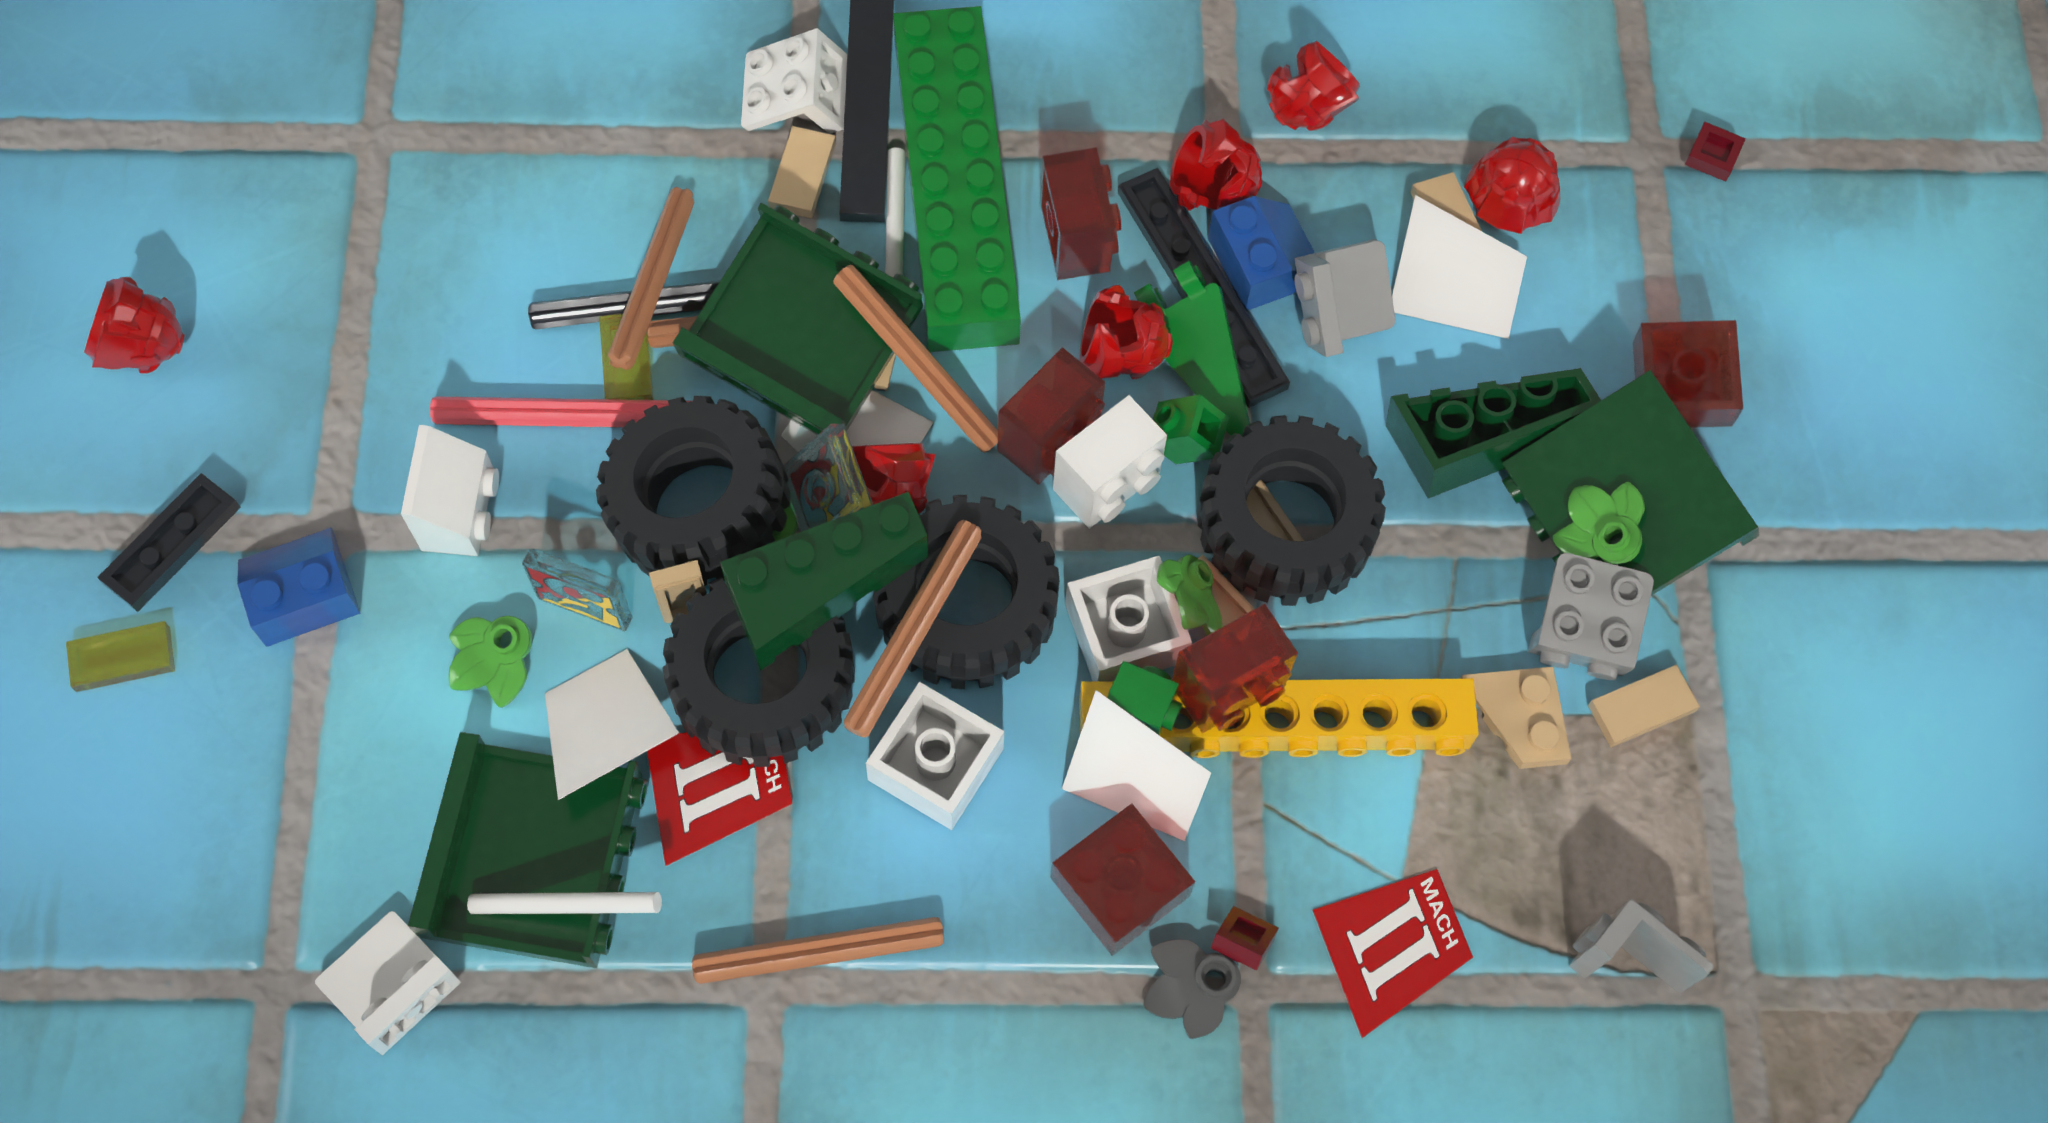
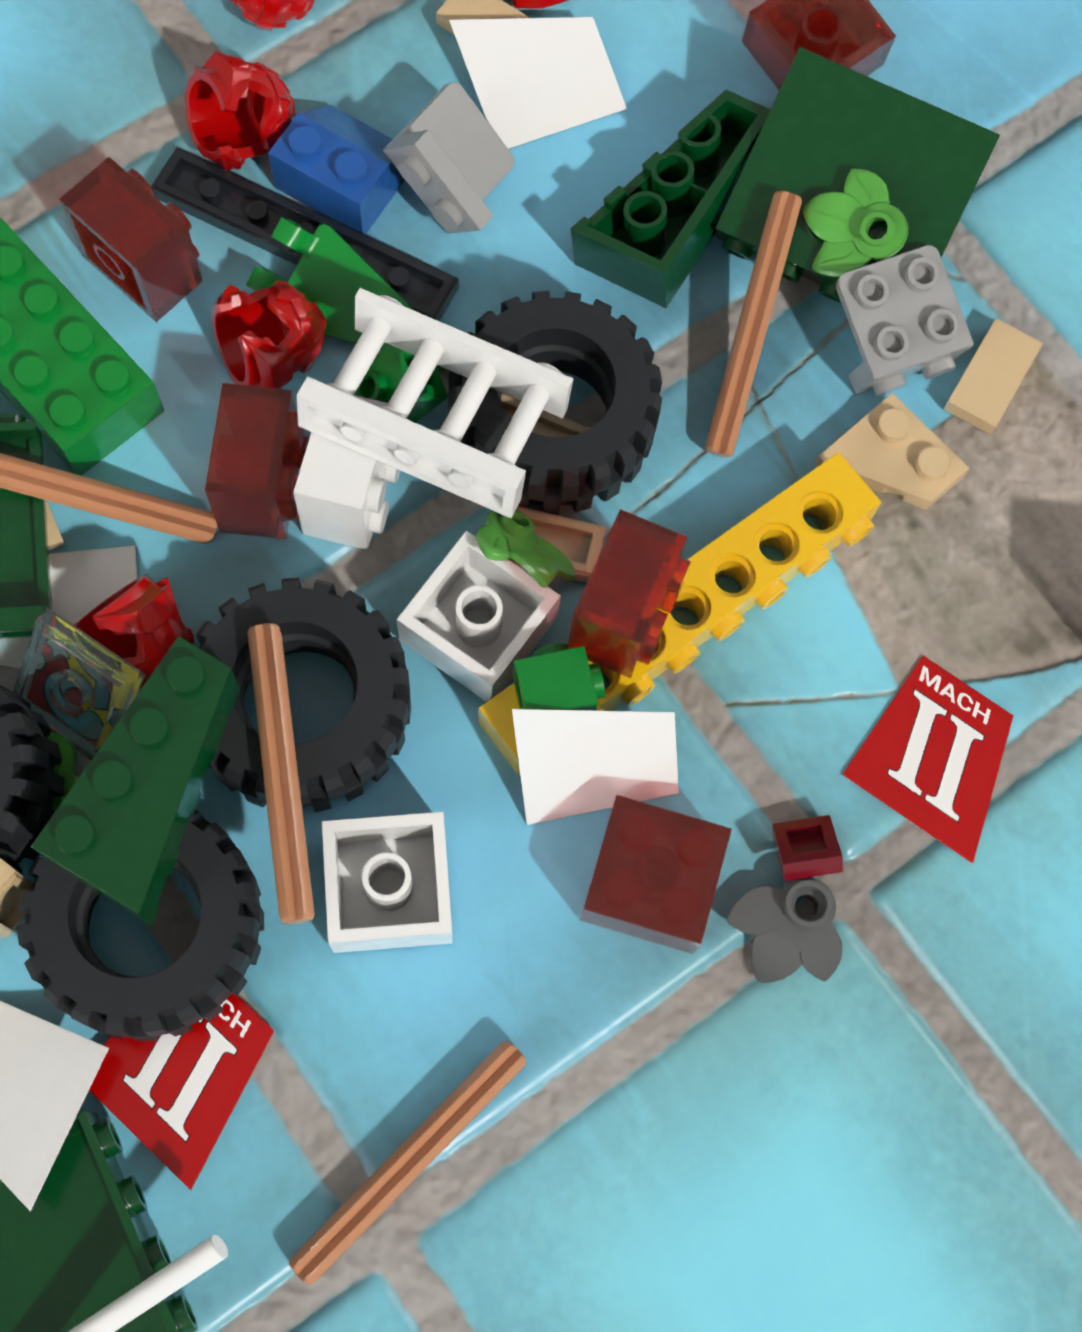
camera: 40 degrees left, 5 degrees up
(1171, 487) = (412, 448): none -> white fence
(1478, 548) = (753, 324): none -> nougat axle

